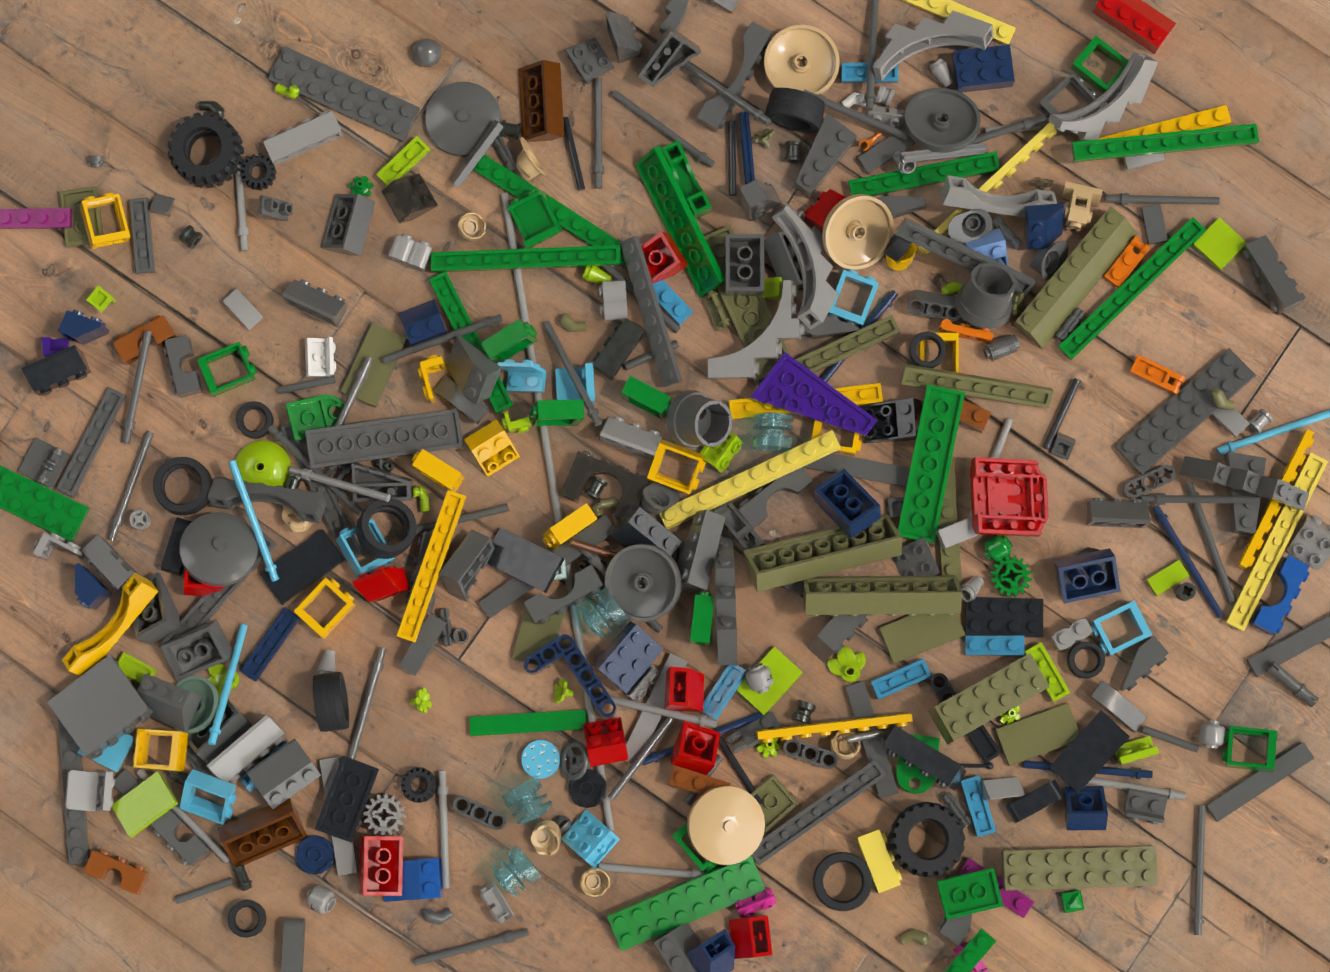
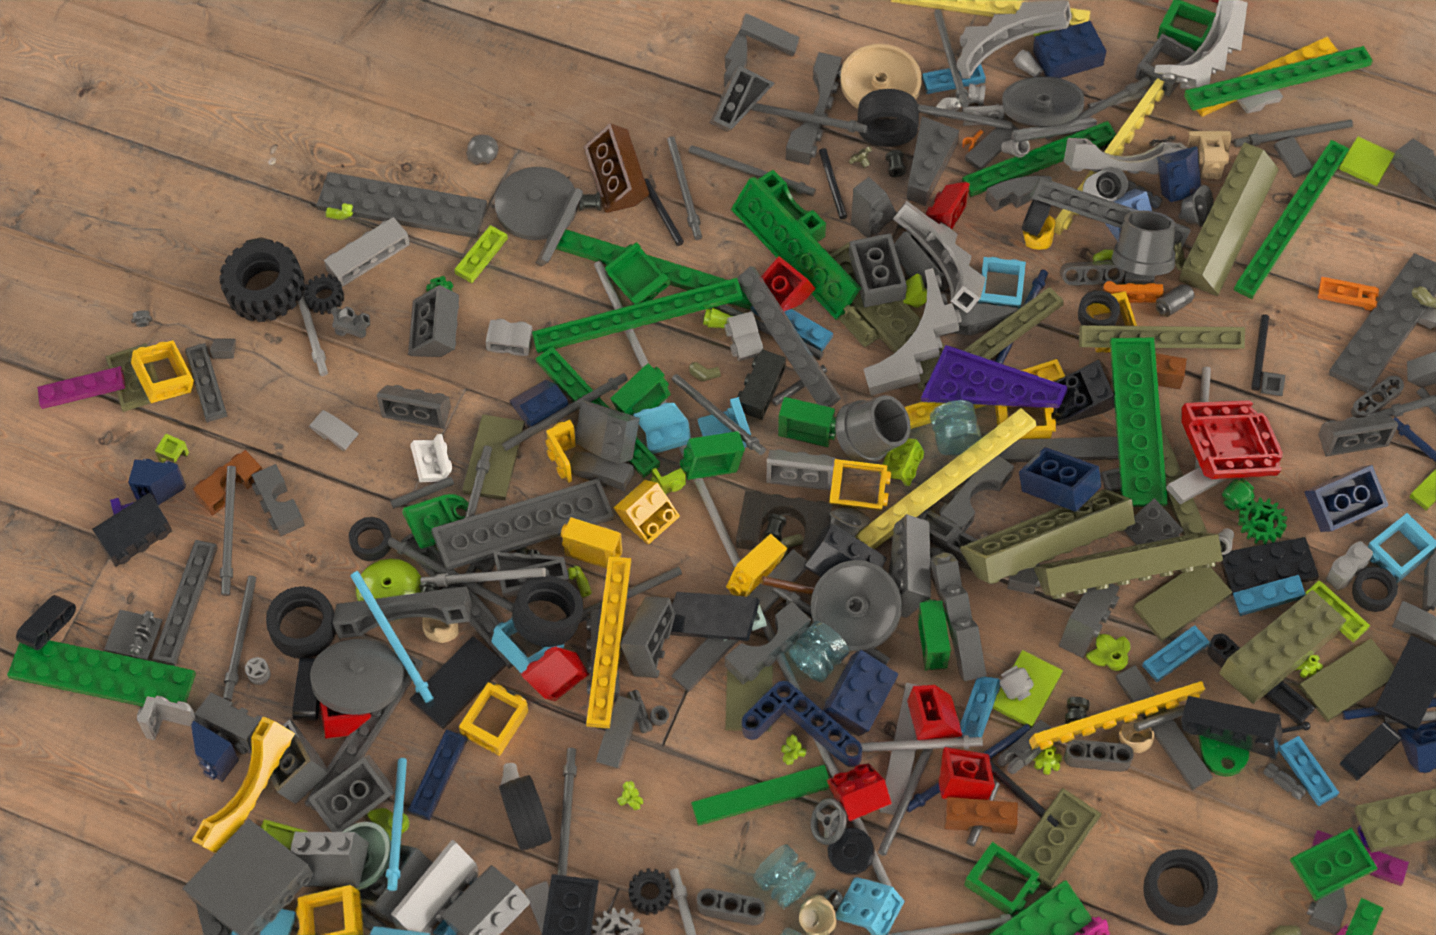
camera: 15 degrees left, 20 degrees down
(190, 236) = (261, 370): pearl dark grey wheel -> none
(212, 357) = (318, 479): green window -> none
(409, 198) = (495, 285): clear smoke slope -> none
(471, 226) = (570, 299): tan hair -> none
(505, 153) = (589, 225): dark grey axle -> none
(528, 163) = (617, 228): tan piece -> none
(540, 759) = (788, 828): medium azure tile -> none
(589, 59) = (656, 123): dark grey hinge -> none
(622, 36) = (686, 92): dark grey slope -> none
(647, 679) = (887, 715): light grey hinge -> none
(726, 825) = (1026, 849): tan dish -> none
(746, 144) = (843, 164): dark blue axle -> none
(818, 811) = (1126, 817): dark grey plate -> none
(857, 231) = (988, 216): tan dish -> none
(879, 860) = (1207, 842): light yellow brick -> none
(953, 839) = (1279, 793): black tyre -> none
(1002, 788) = (1329, 745): light grey slope -> none
(1070, 324) = (1239, 265): dark grey axle -> none
(1126, 262) = (1277, 197): orange plate -> none

